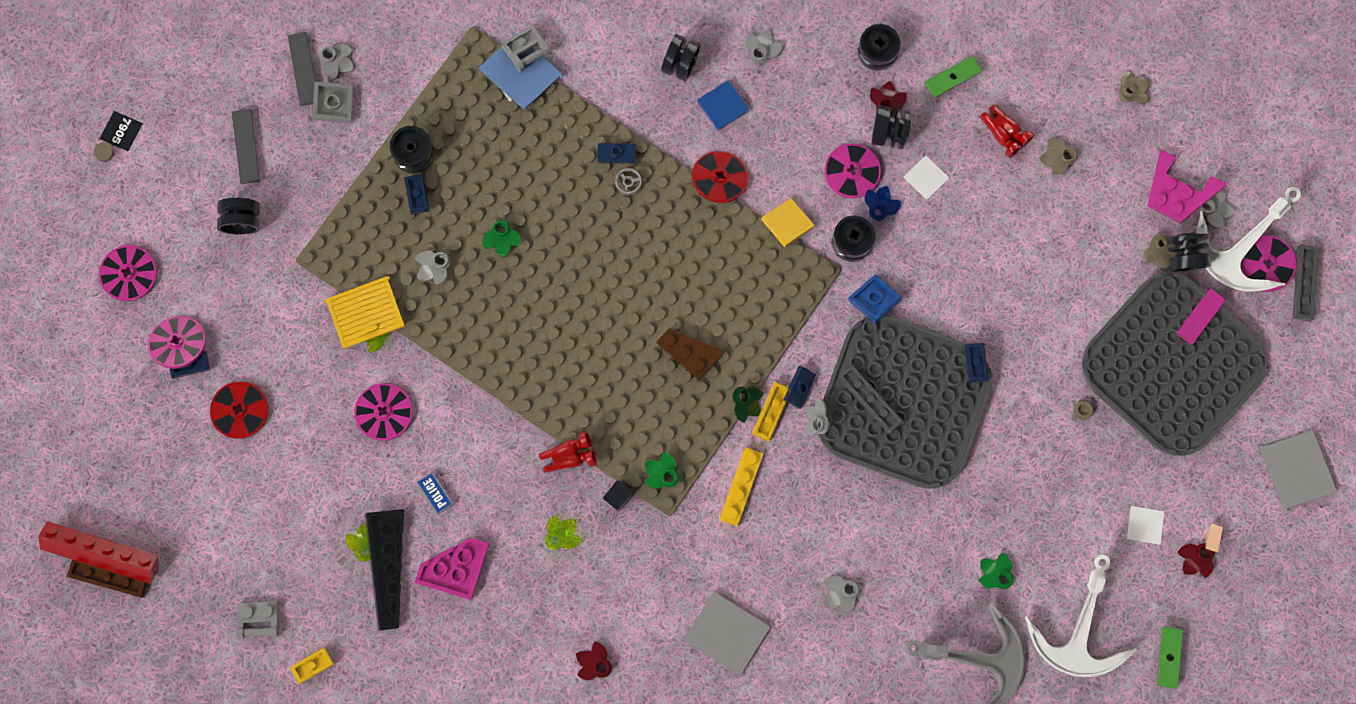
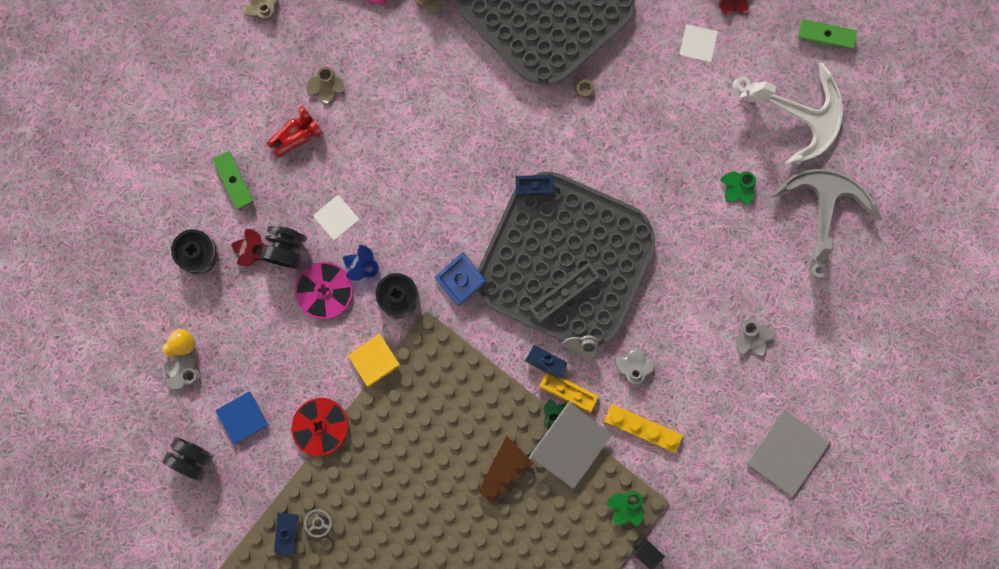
camera: 85 degrees left, 5 degrees up
(719, 413) = (571, 445): none -> light grey piece
(789, 41) = (179, 343): none -> yellow piece
(805, 475) = (635, 363): none -> light grey plate

